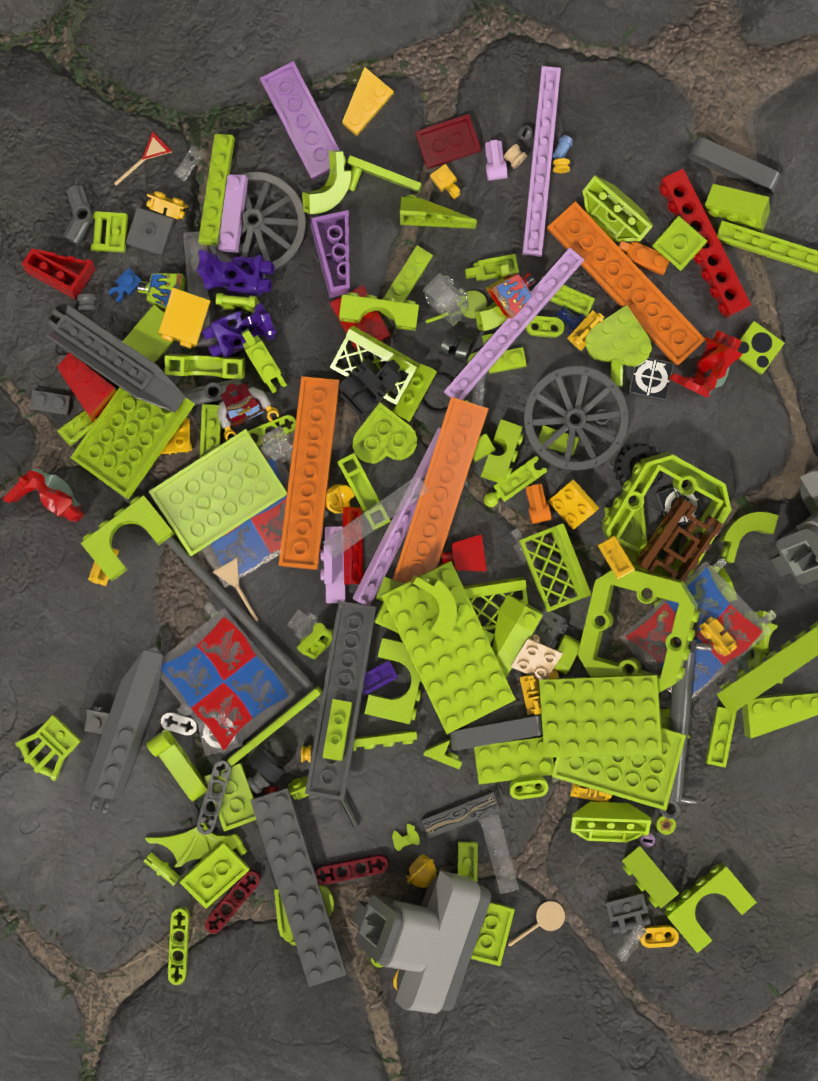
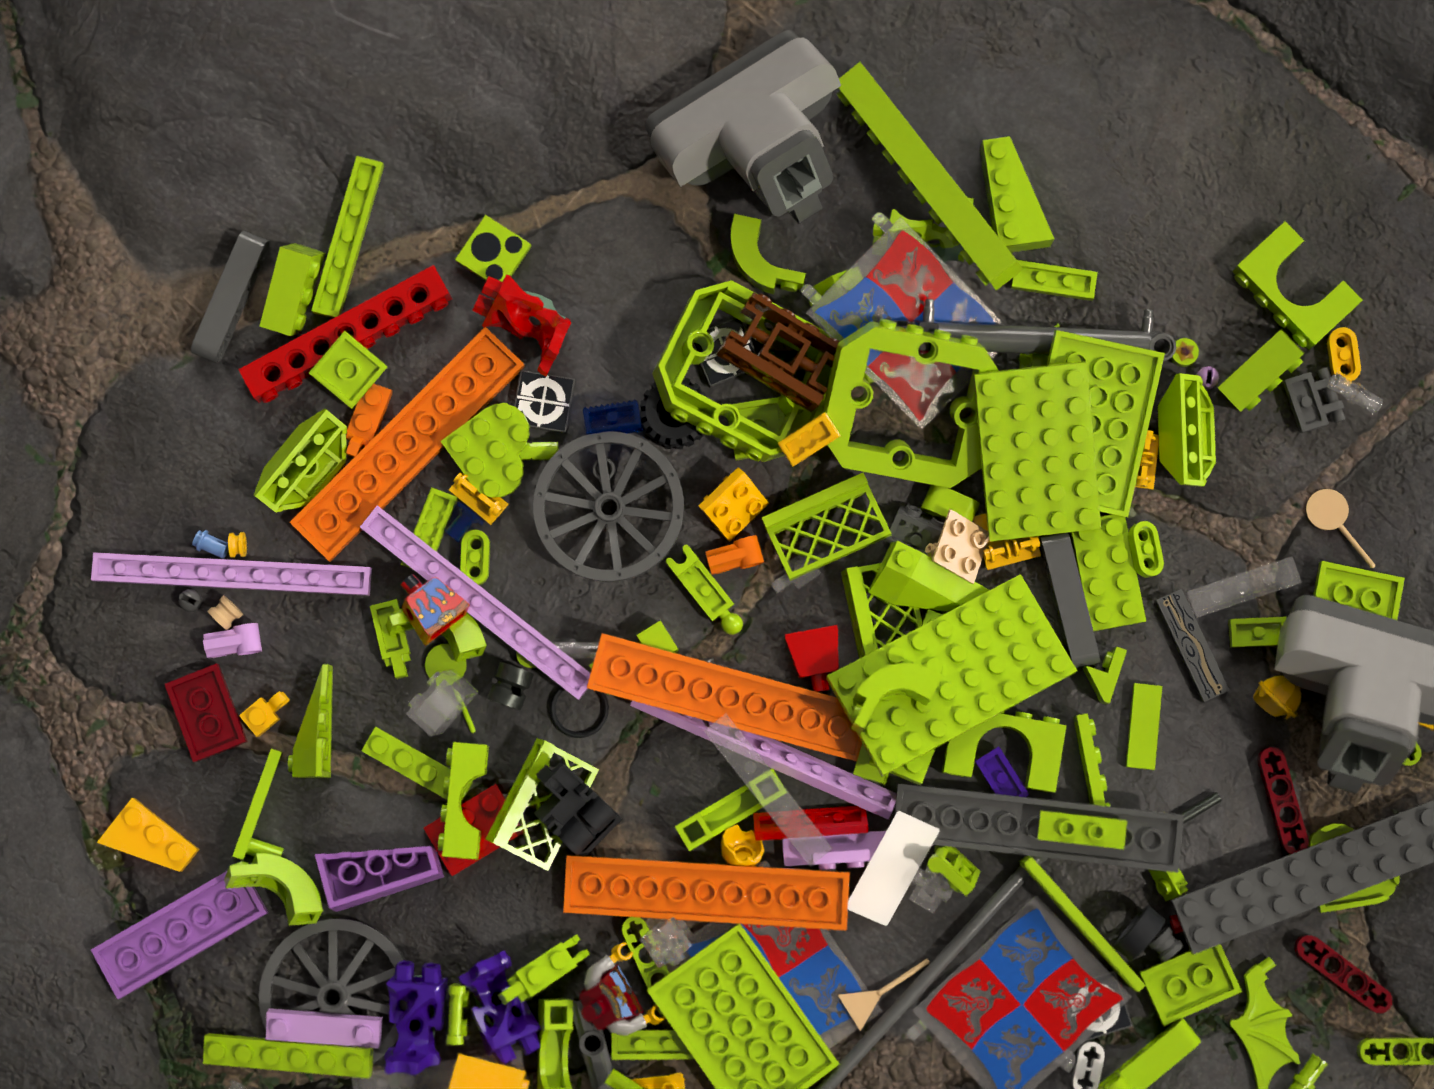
camera: 85 degrees left, 5 degrees down
(214, 874) = (1306, 1002): lime plate -> none
(215, 797) = (1192, 1008): dark grey beam -> none
(306, 753) = (1119, 875): yellow bush -> none
(319, 599) = (892, 868): none -> white sticker
(383, 437) = (647, 786): lime plate -> none
(406, 777) = (1143, 726): none -> lime tile
(411, 838) = (1230, 714): lime piece -> none
(414, 392) = (580, 743): lime plate -> none
(497, 467) = (639, 603): lime arch -> none
(510, 359) = (526, 605): lime plate -> none
(558, 445) = (646, 527): lime tile -> none
(637, 424) = (613, 417): none -> clear blue brick
(721, 643) = (922, 286): yellow hinge -> none

